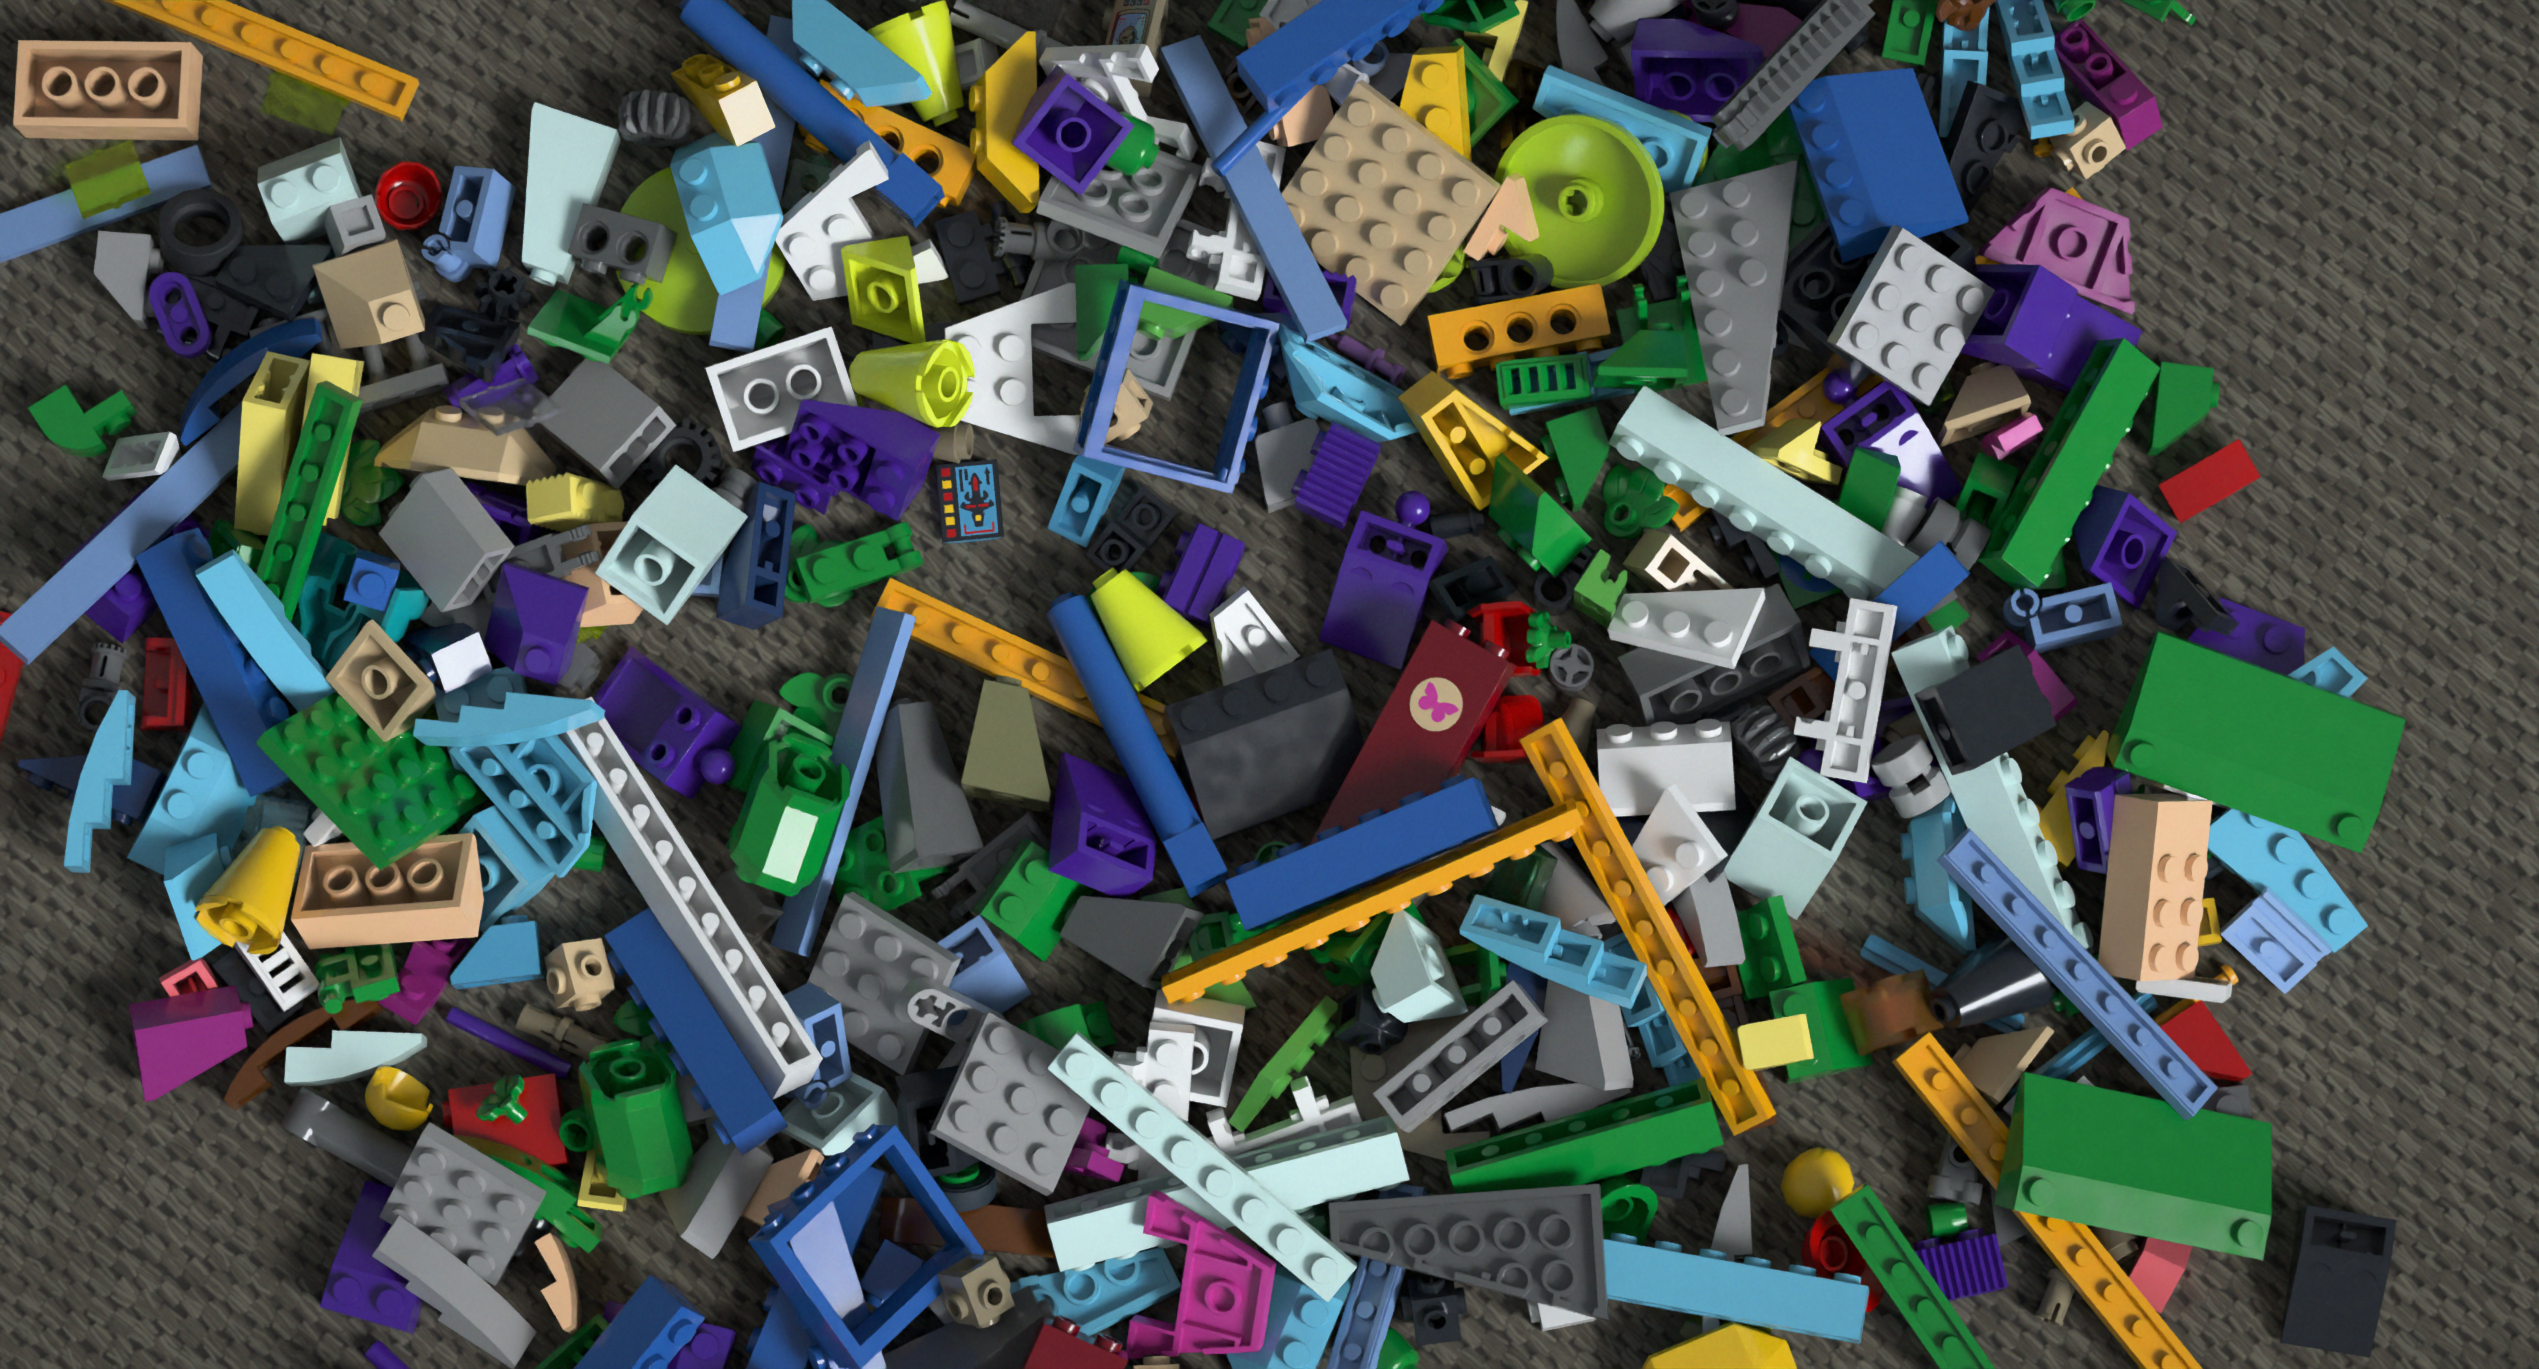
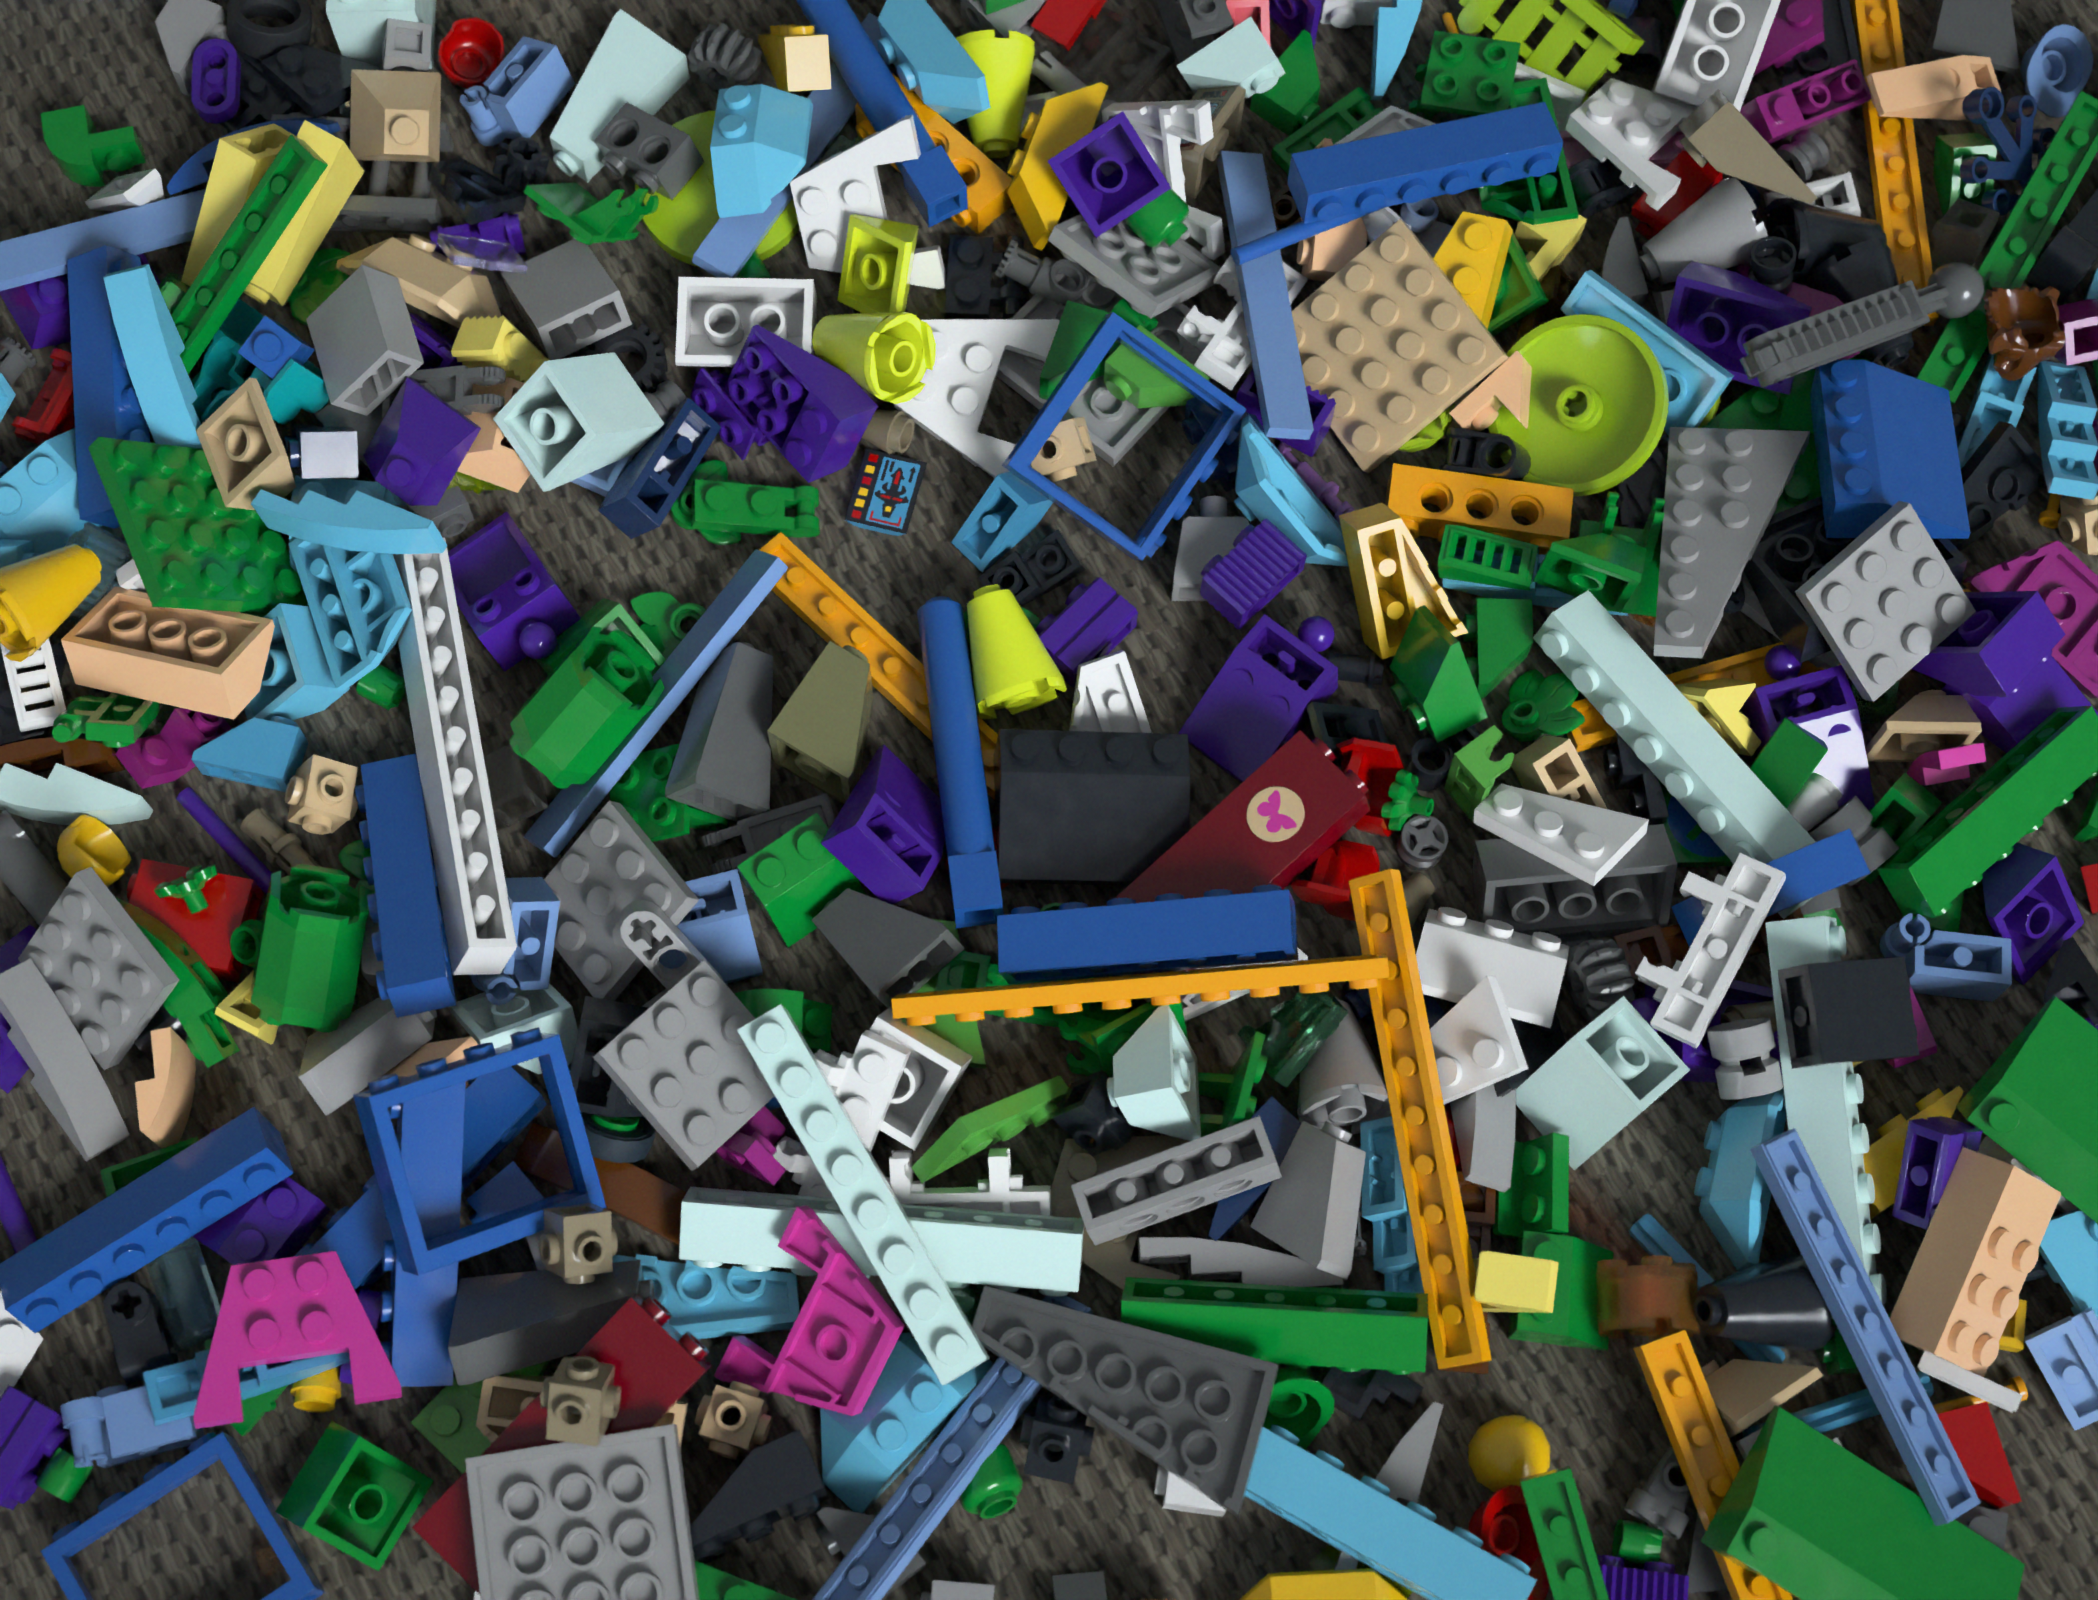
camera: 15 degrees right, 10 degrees down
(1554, 953) = (1301, 1094): medium azure slope -> none

